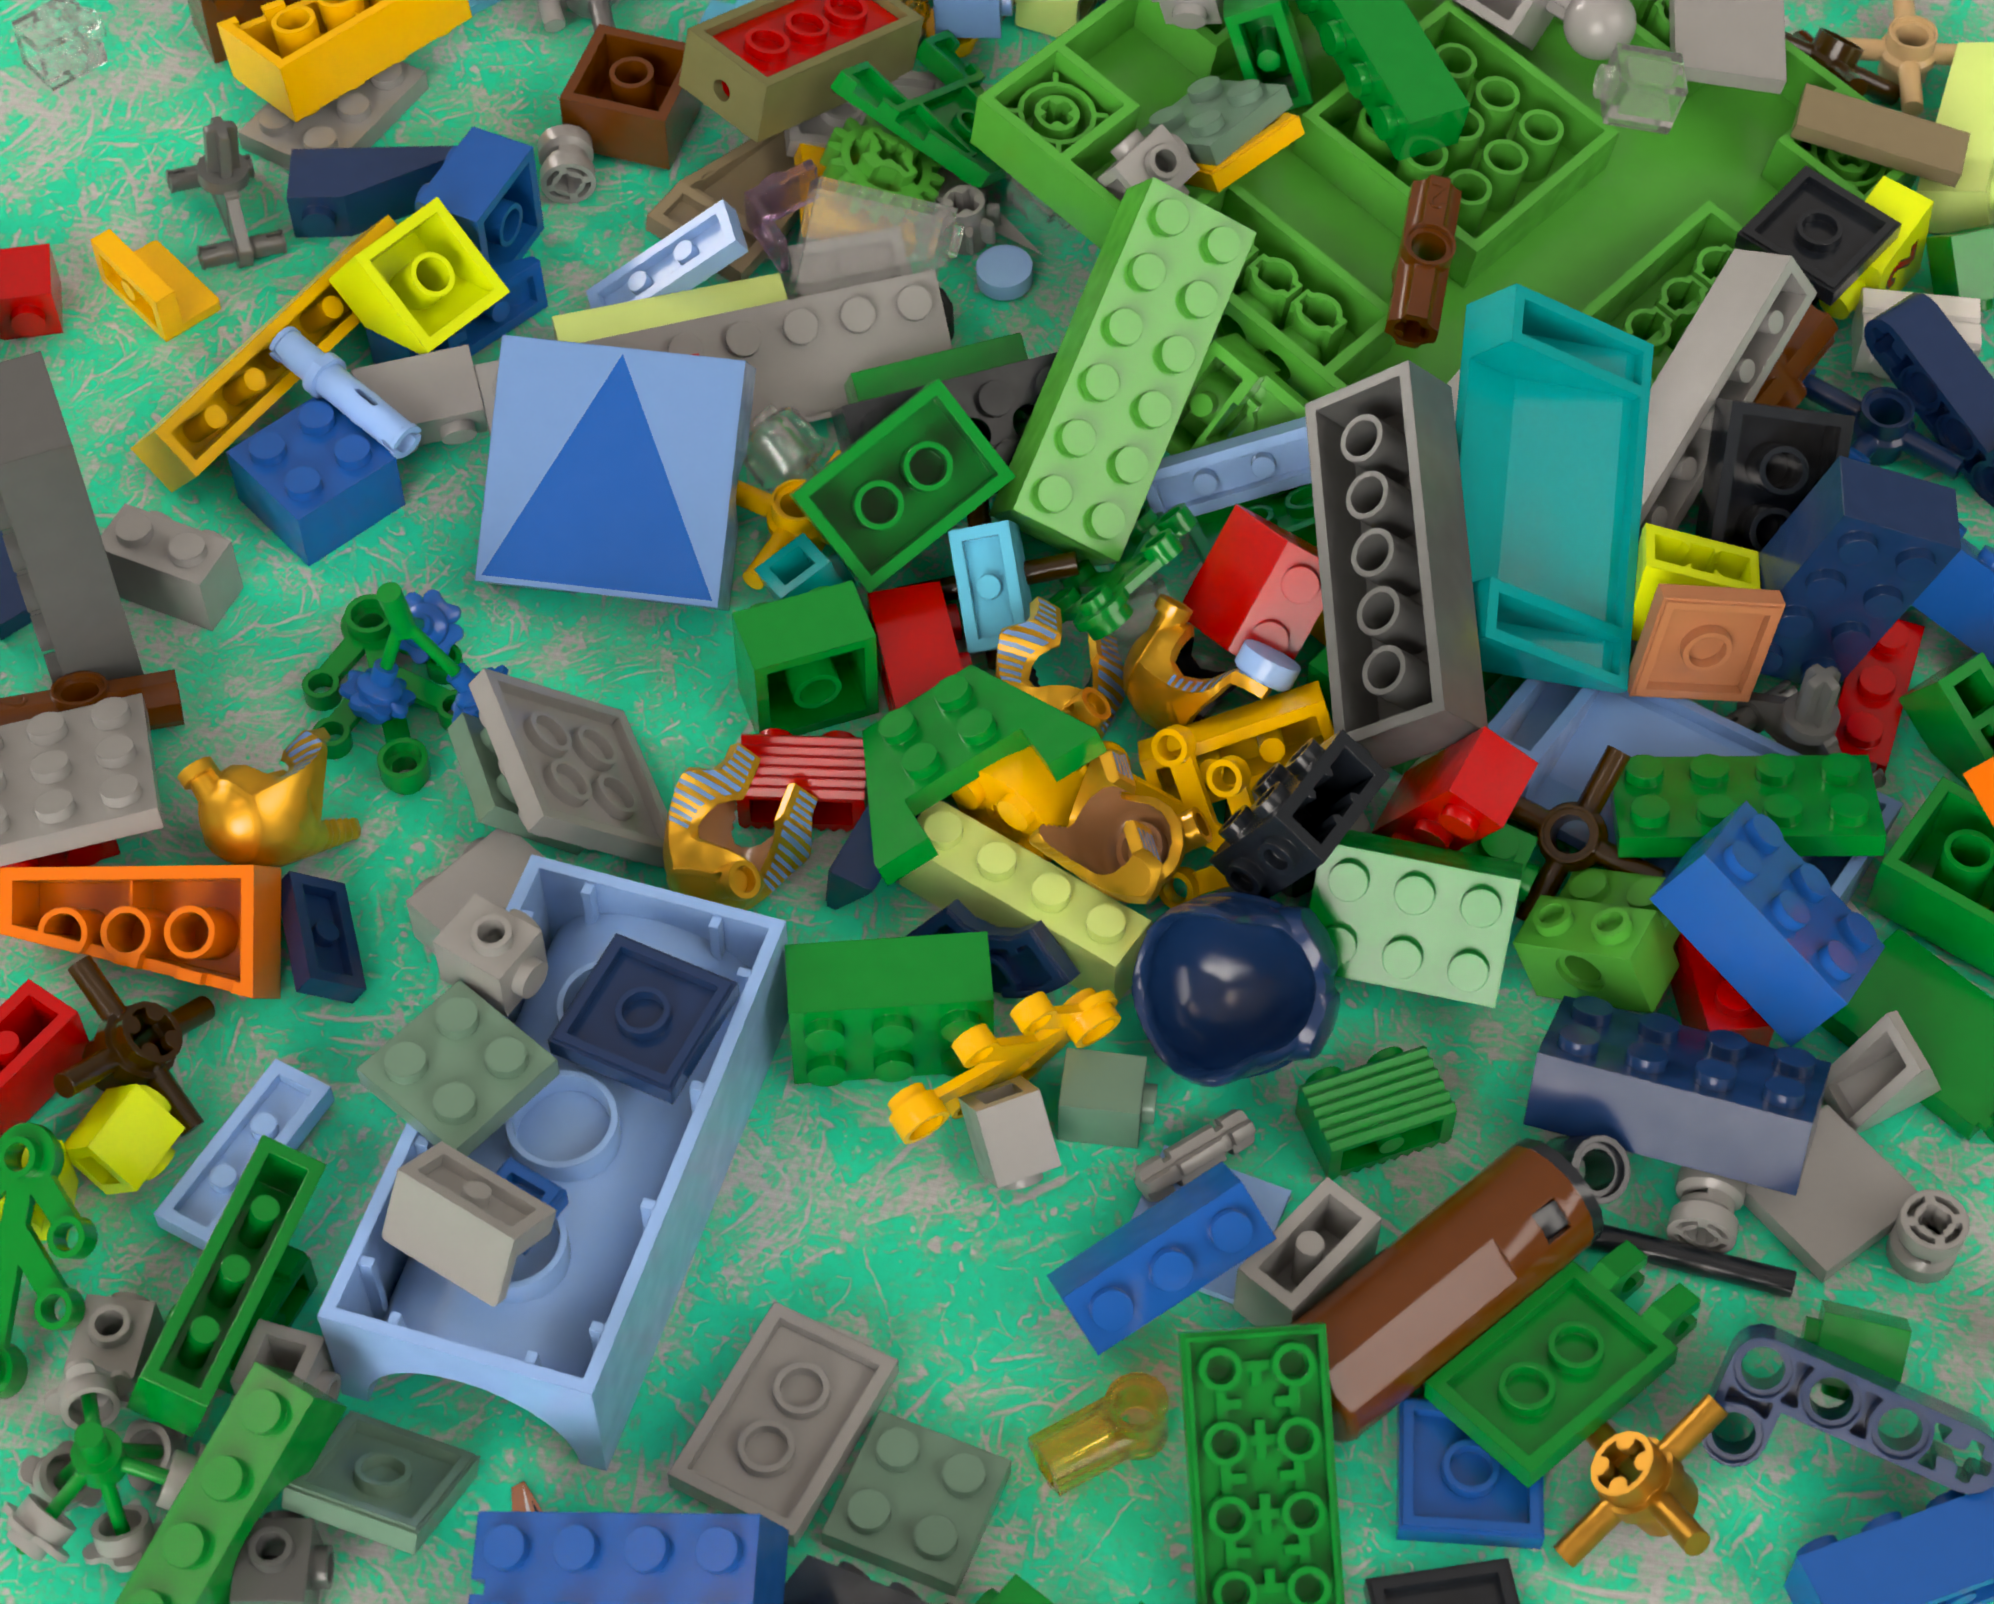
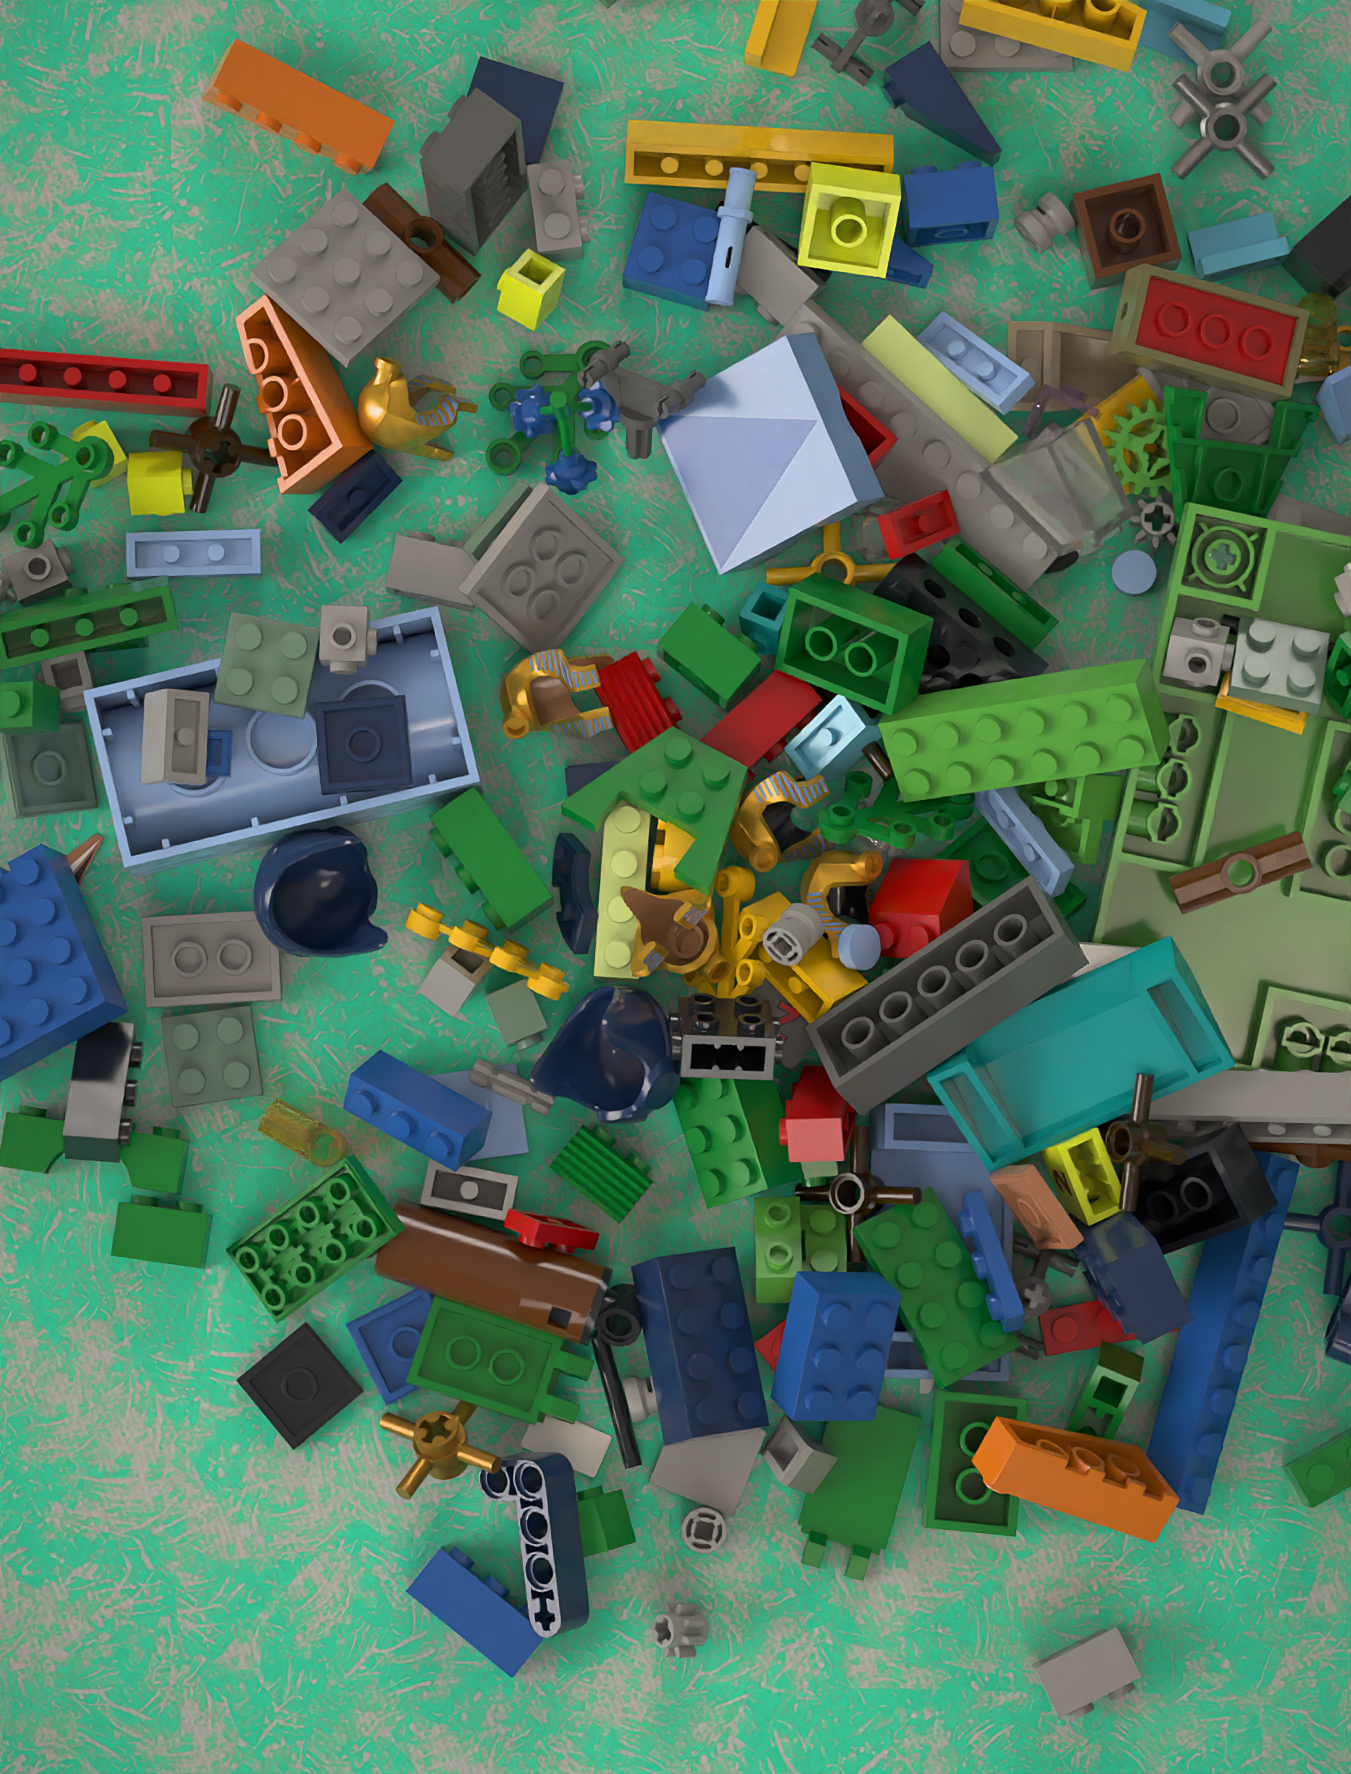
camera: 55 degrees right, 30 degrees up
(234, 629) = (530, 289): none -> neon yellow brick
(456, 559) = (639, 398): none -> dark grey axle
(788, 1225) = (318, 895): none -> dark blue piece
(806, 389) = (918, 524): none -> red plate
(1200, 693) = (793, 934): none -> light grey wheel
(1420, 1185) = (559, 1232): none -> red plate
(1701, 473) = (1138, 1142): none -> dark brown bar
(1705, 1348) = (576, 1441): none -> white sticker
(1747, 721) = (990, 1262): none -> blue plate

